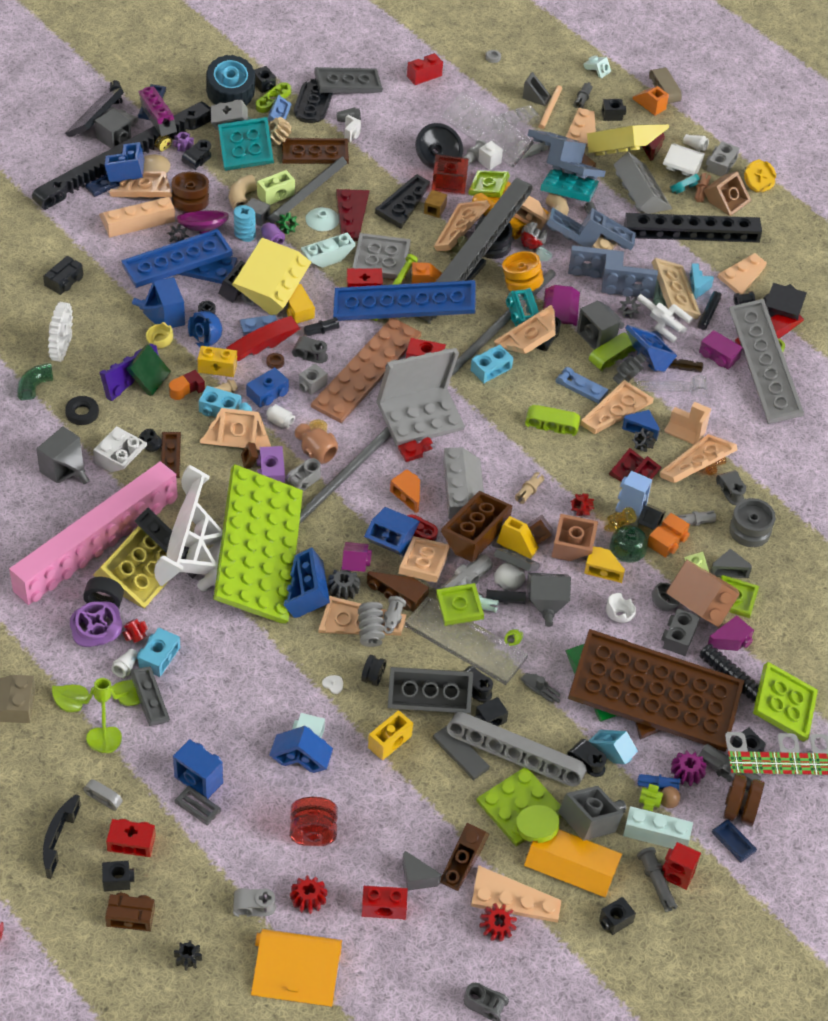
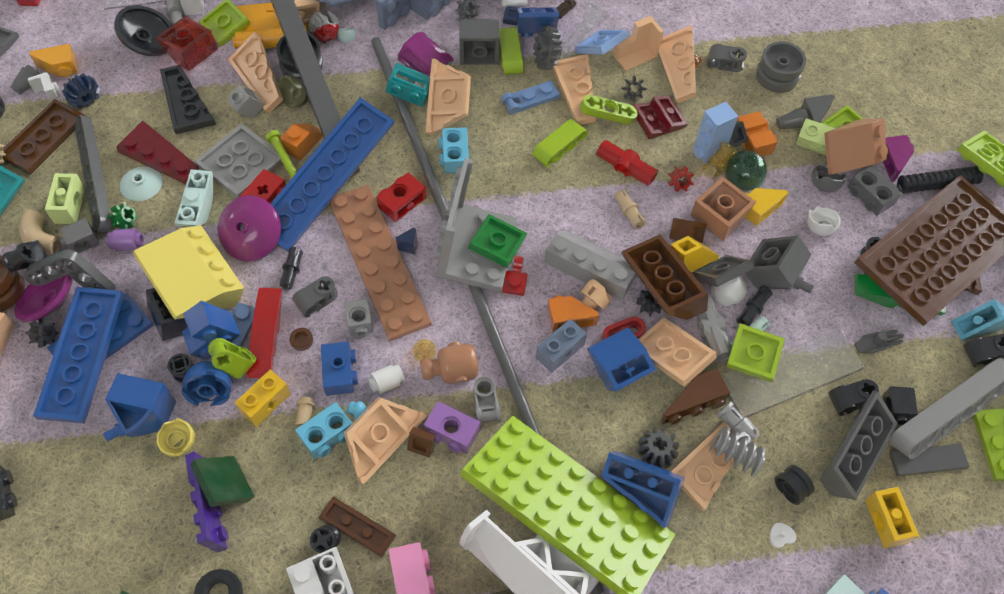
camera: 55 degrees left, 10 degrees up
(60, 331) = (90, 552): white gear -> none
(186, 384) = (269, 450): leg -> none
(218, 192) = (23, 256): none -> black piece
(227, 213) = (73, 266): none -> dark grey beam
(228, 329) = (230, 357): none -> lime piece
(240, 305) = (205, 324): none -> blue brick
(244, 223) = (92, 251): medium azure piece -> none
(300, 306) = (249, 270): yellow slope -> none
(331, 287) = (260, 229): none -> magenta dish
(356, 556) = (638, 415): magenta brick -> none
(362, 146) = (81, 90): none -> dark blue gear
(378, 121) = (56, 60): none -> light orange slope
(378, 494) = (561, 345): none -> sand blue brick
(429, 230) = (245, 101): none -> light grey brick
(430, 419) = (497, 241): none -> green tile
(433, 497) = (595, 295): none -> light nougat piece
(435, 203) = (212, 77): pearl gold brick -> none
(518, 635) = (820, 328): lime pin -> none
(523, 271) = (365, 58): light orange wheel -> none
(570, 467) = (627, 162): none -> red piece
(597, 423) = (594, 106): none -> lime beam
(639, 420) = (613, 78): blue slope -> none
(670, 399) = (601, 42): none -> light blue tile
(697, 518) = (744, 104): light grey pin -> none
(710, 554) = (793, 119): none -> dark grey cone

